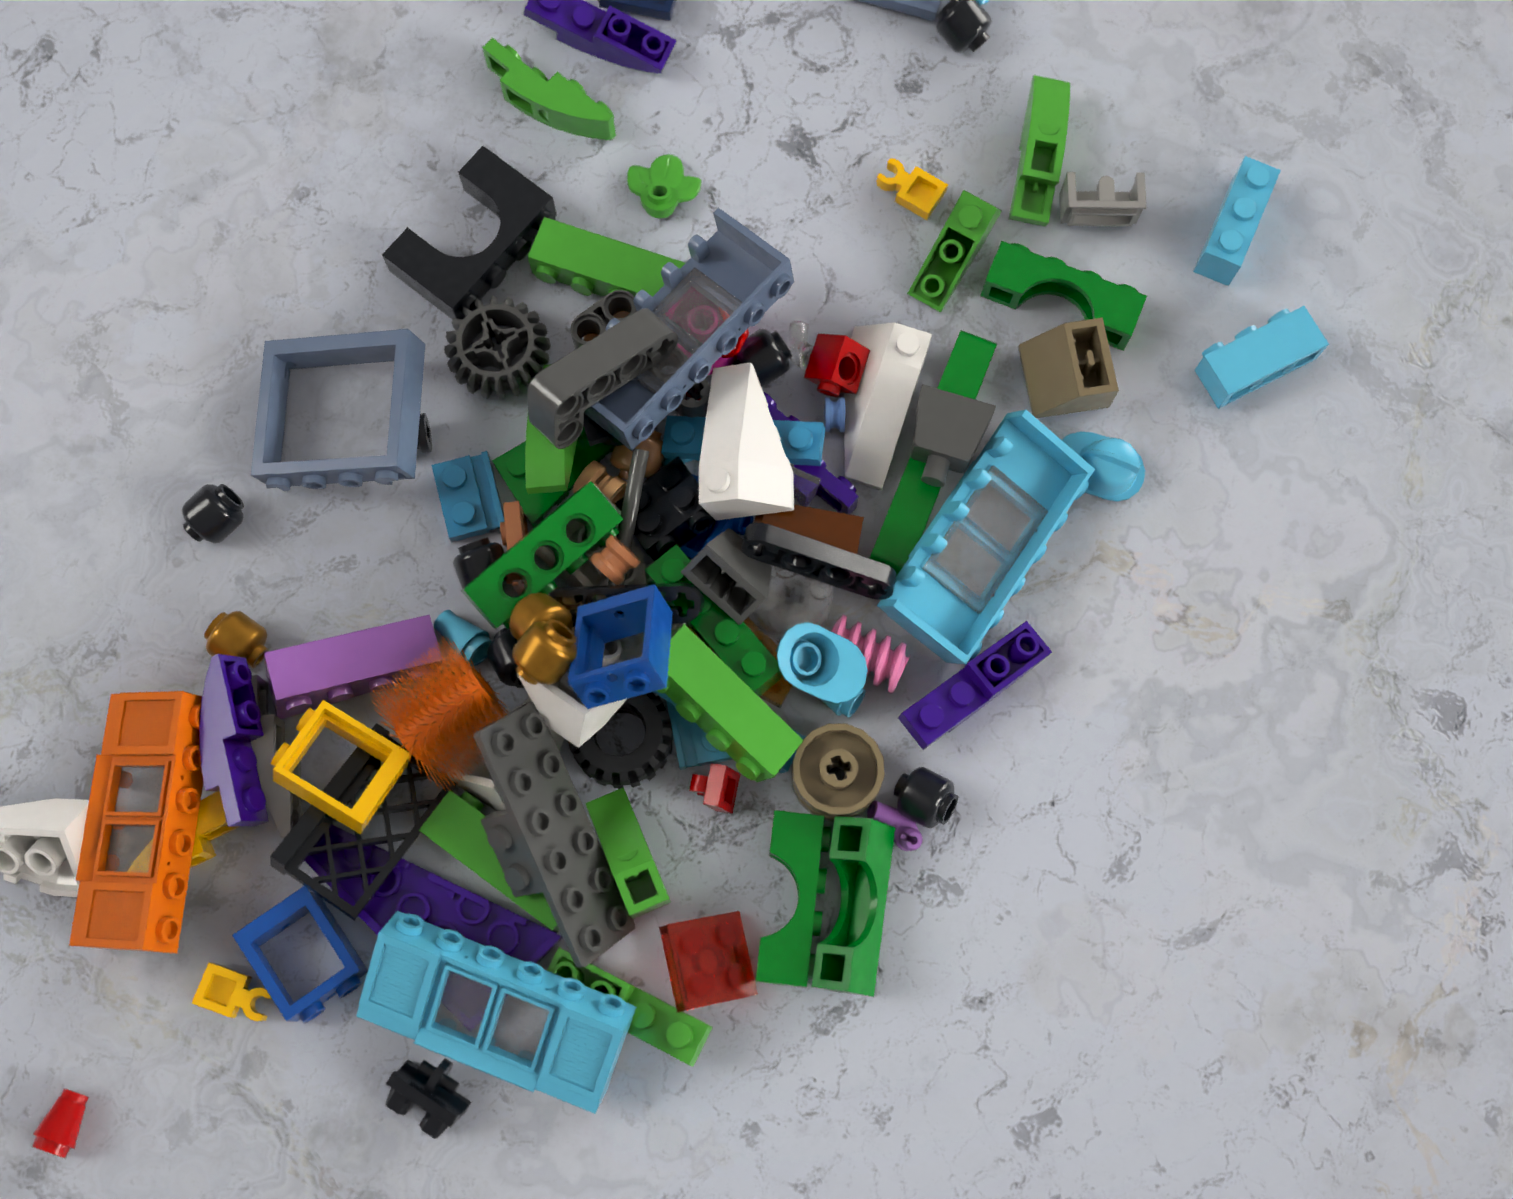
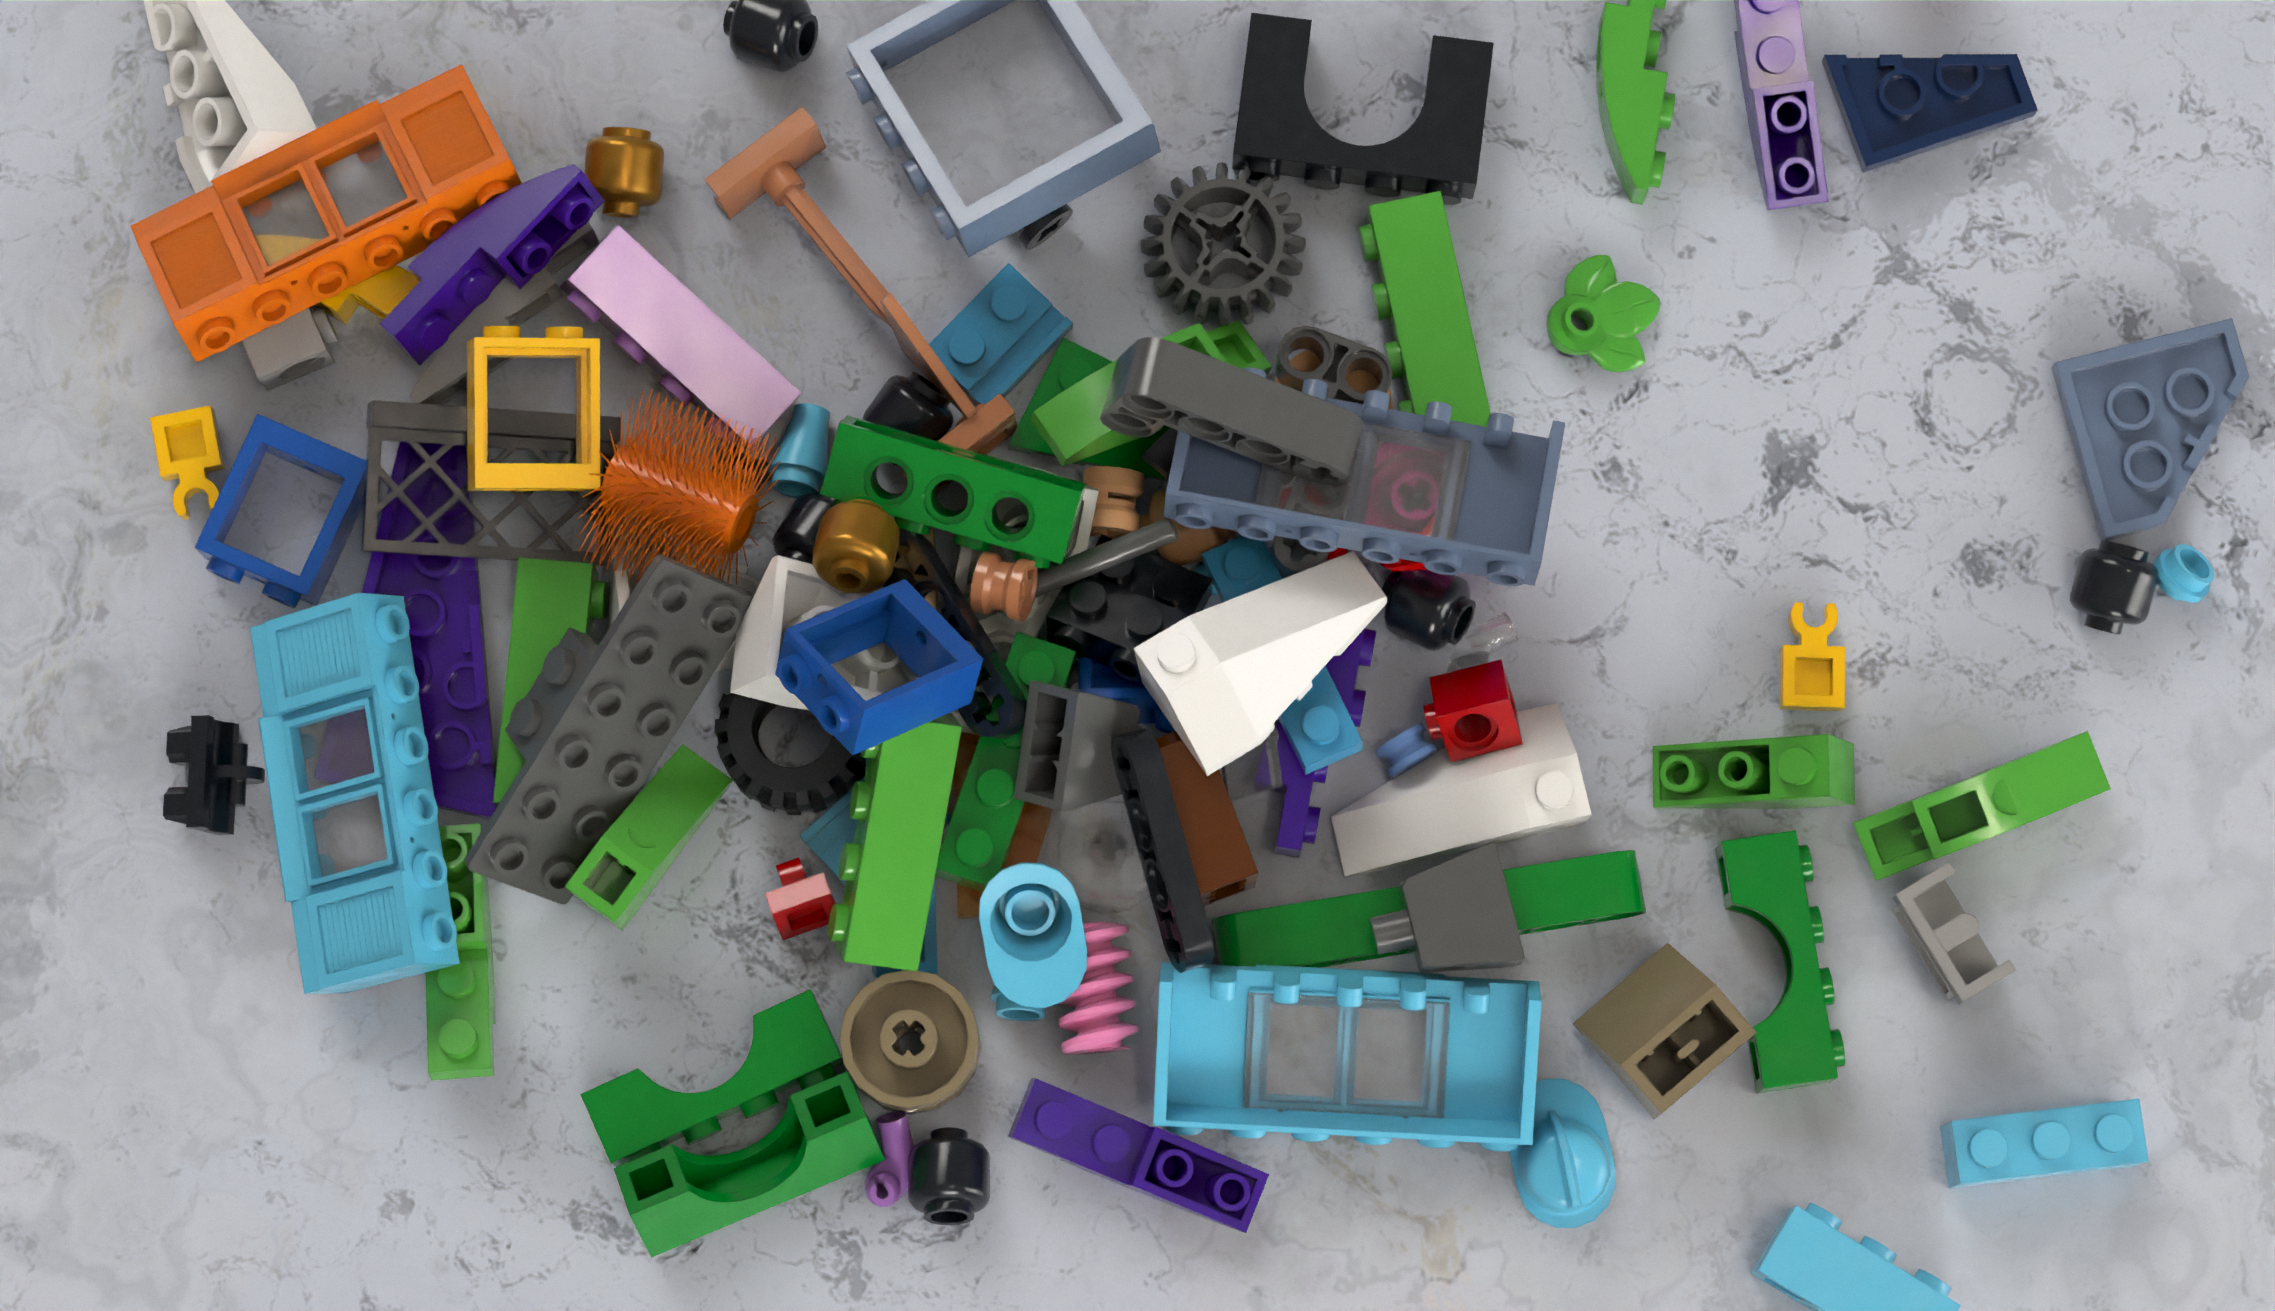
camera: 60 degrees right, 5 degrees up
(207, 893) = (291, 348): none -> light grey brick
(290, 558) = (771, 168): none -> nougat piece
(545, 652) = (811, 577): pearl gold head -> none
(708, 961) = (572, 1021): clear red plate -> none

